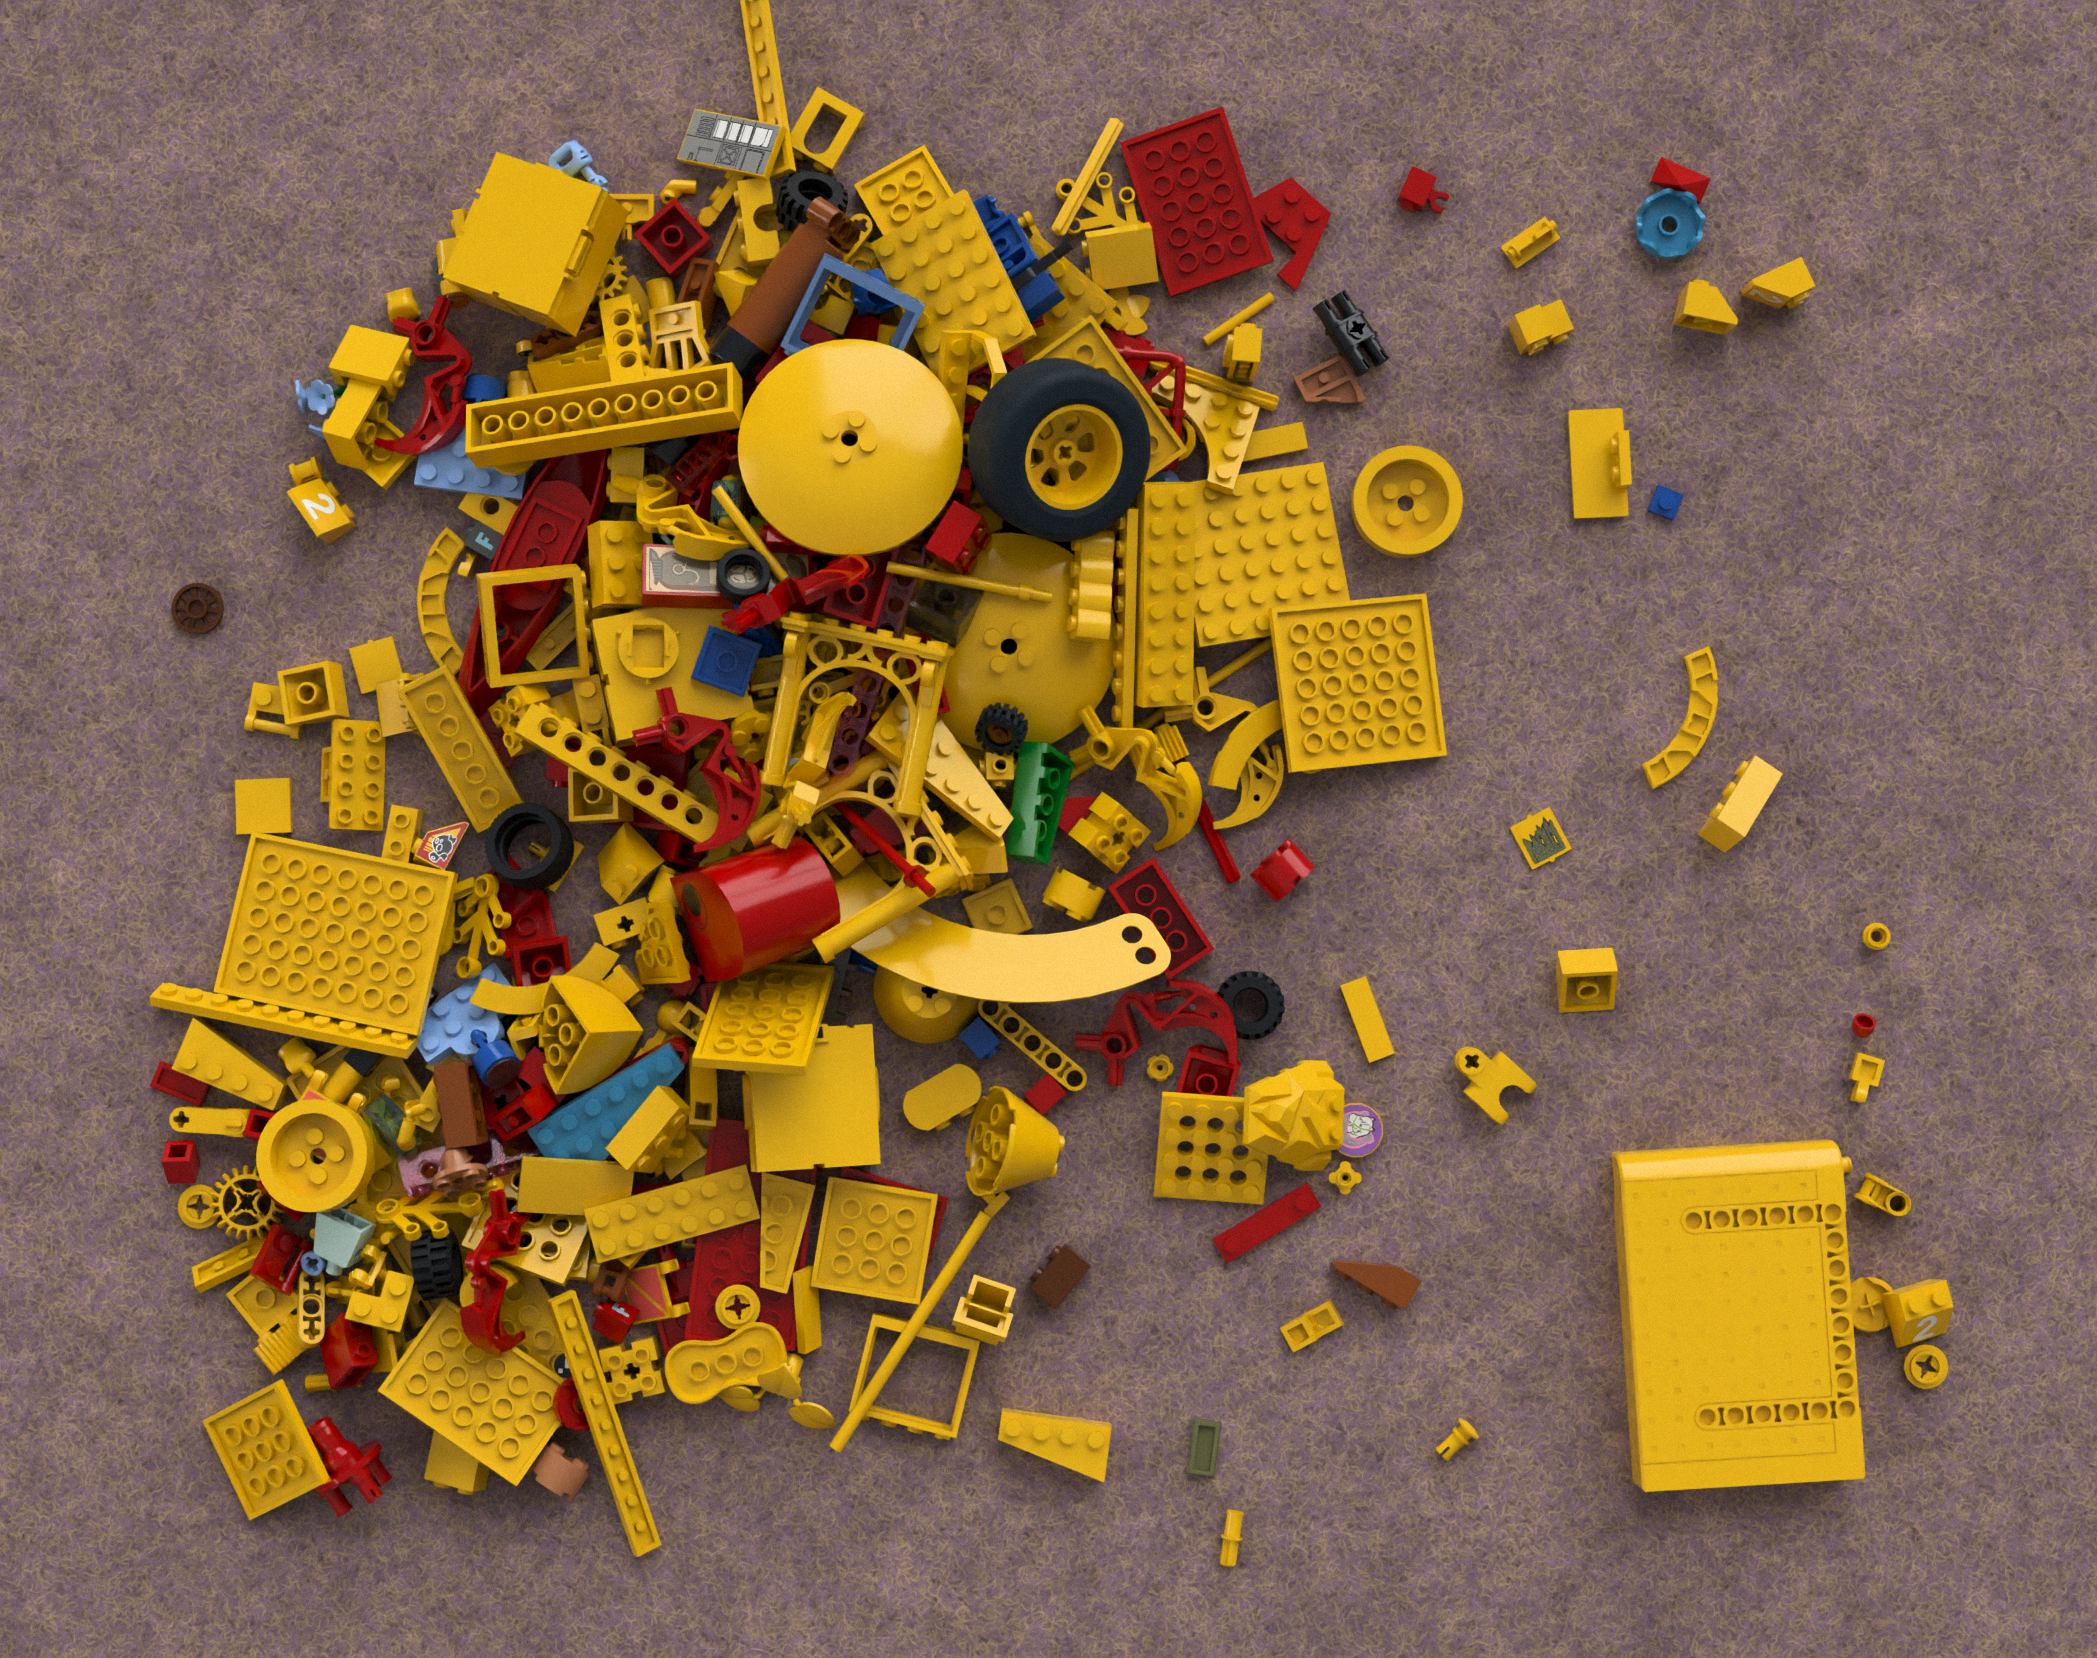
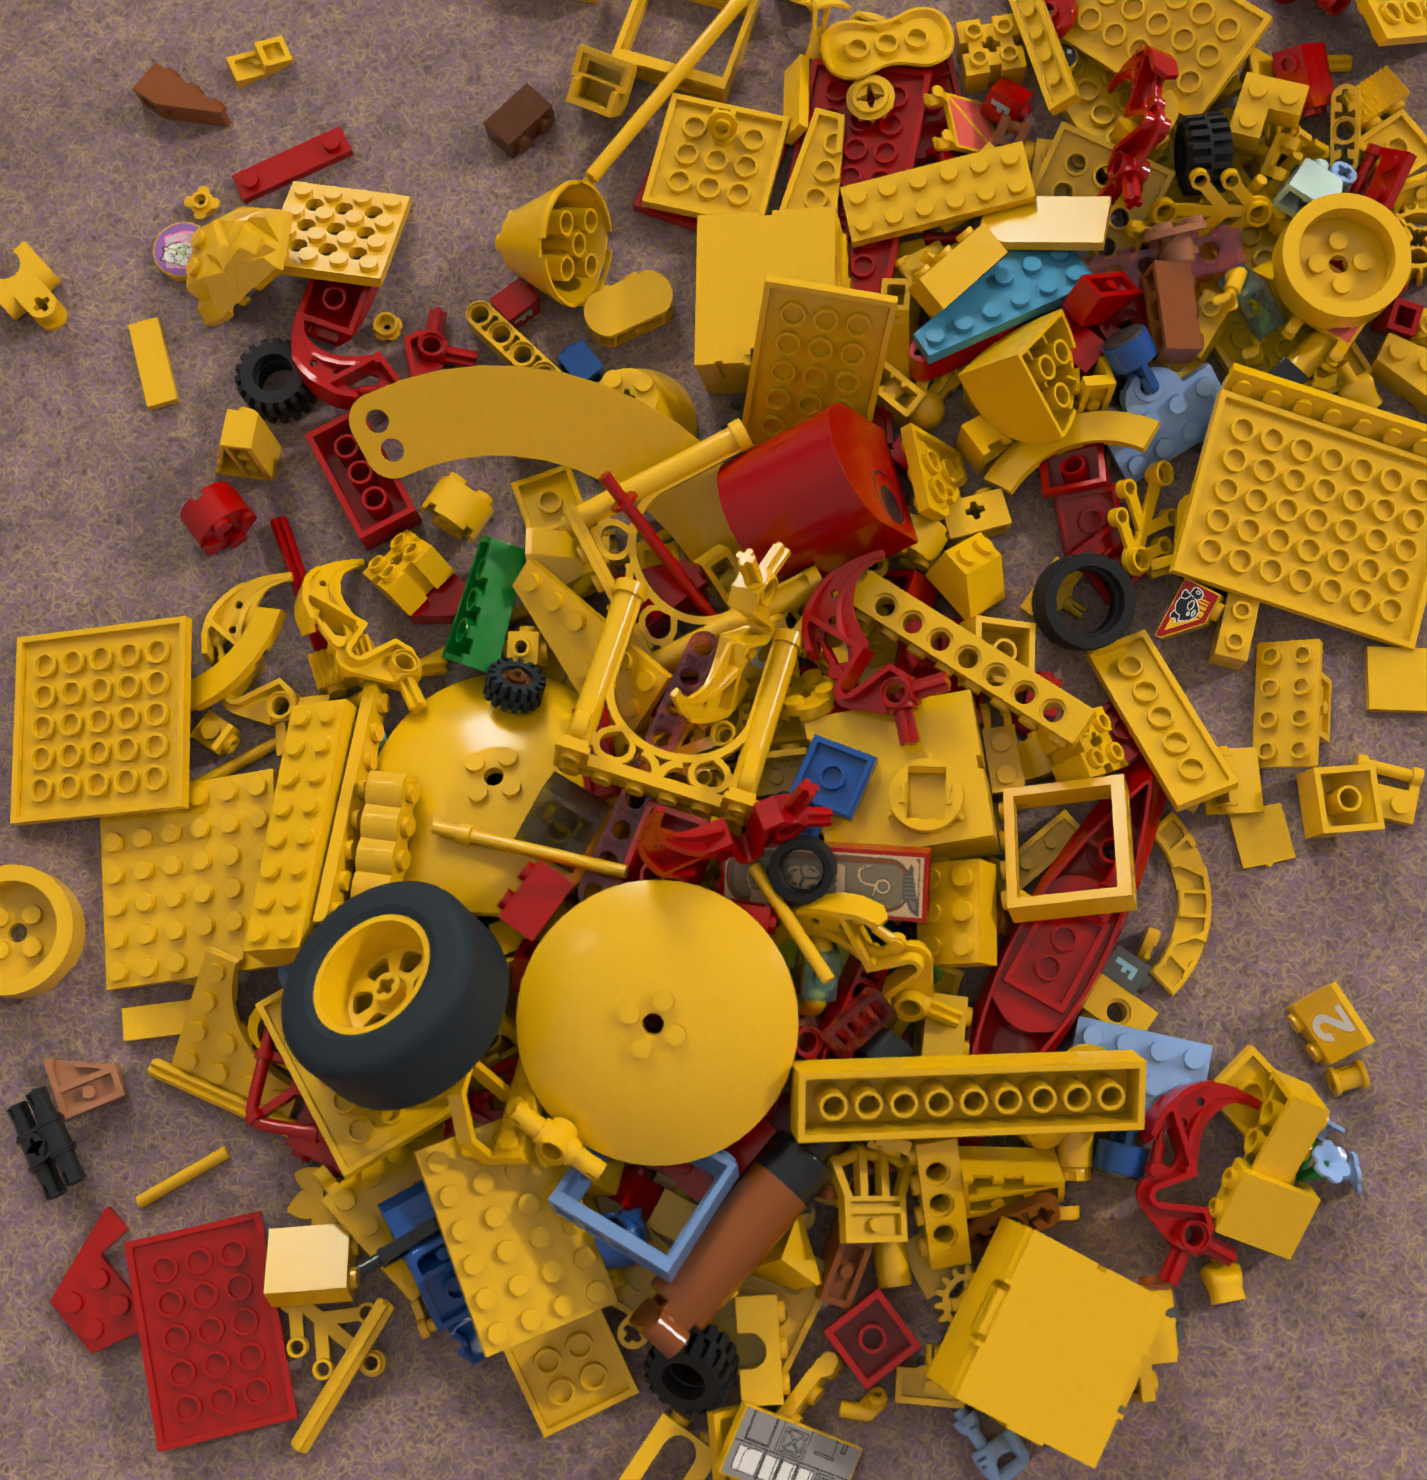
camera: 170 degrees left, 10 degrees down
(869, 1268) = (722, 124): none -> yellow plate
(920, 348) = (556, 1141): none -> yellow pin
(1243, 353) = (168, 1119): yellow brick -> none
(1260, 684) = (216, 734): none -> yellow bracket
(1269, 935) = (247, 446): none -> yellow wedge

